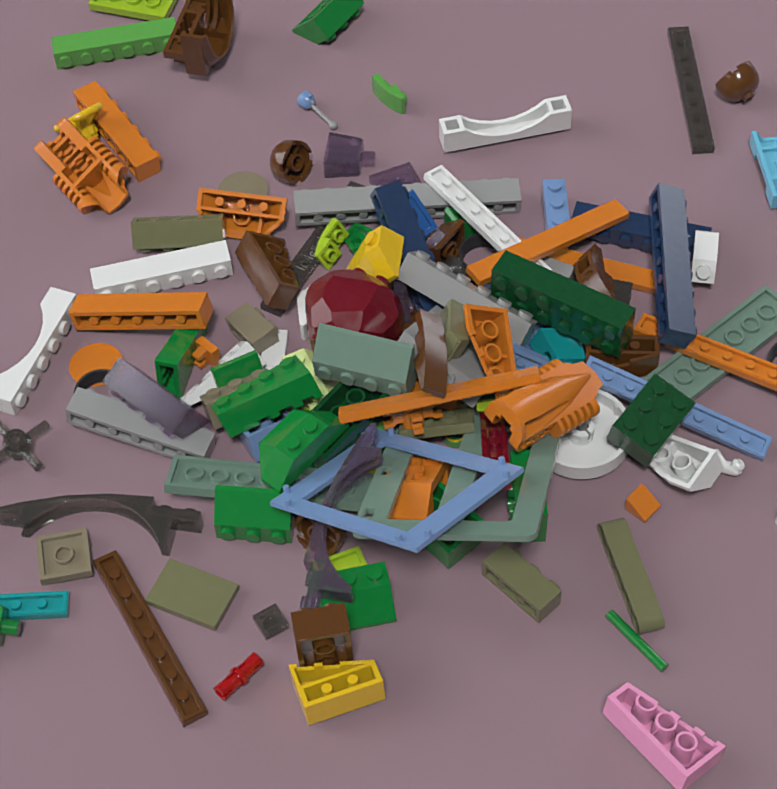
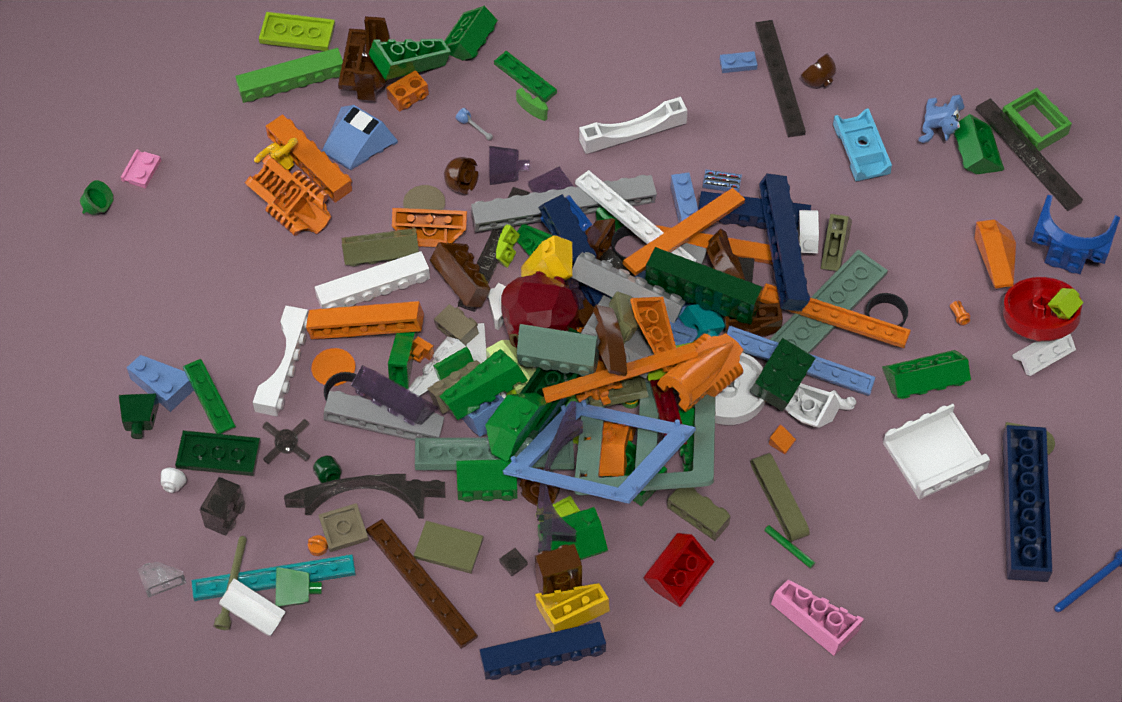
camera: 10 degrees left, 5 degrees up
(27, 575) = (317, 545): none -> orange tile
(59, 481) = (327, 469): none -> dark green head
(177, 114) = (356, 137): none -> medium blue wedge
(238, 676) = (496, 606): red pin -> none
(246, 69) = (407, 91): none -> orange brick
(252, 29) = (402, 58): none -> green wedge
(287, 741) = (542, 651): none -> dark blue brick
(387, 65) = (525, 76): none -> green tile
(485, 653) = (679, 569): none -> red slope
(602, 193) = (721, 180): none -> tile
(642, 68) = (738, 62): none -> medium blue plate
(739, 272) = (836, 242): none -> olive slope

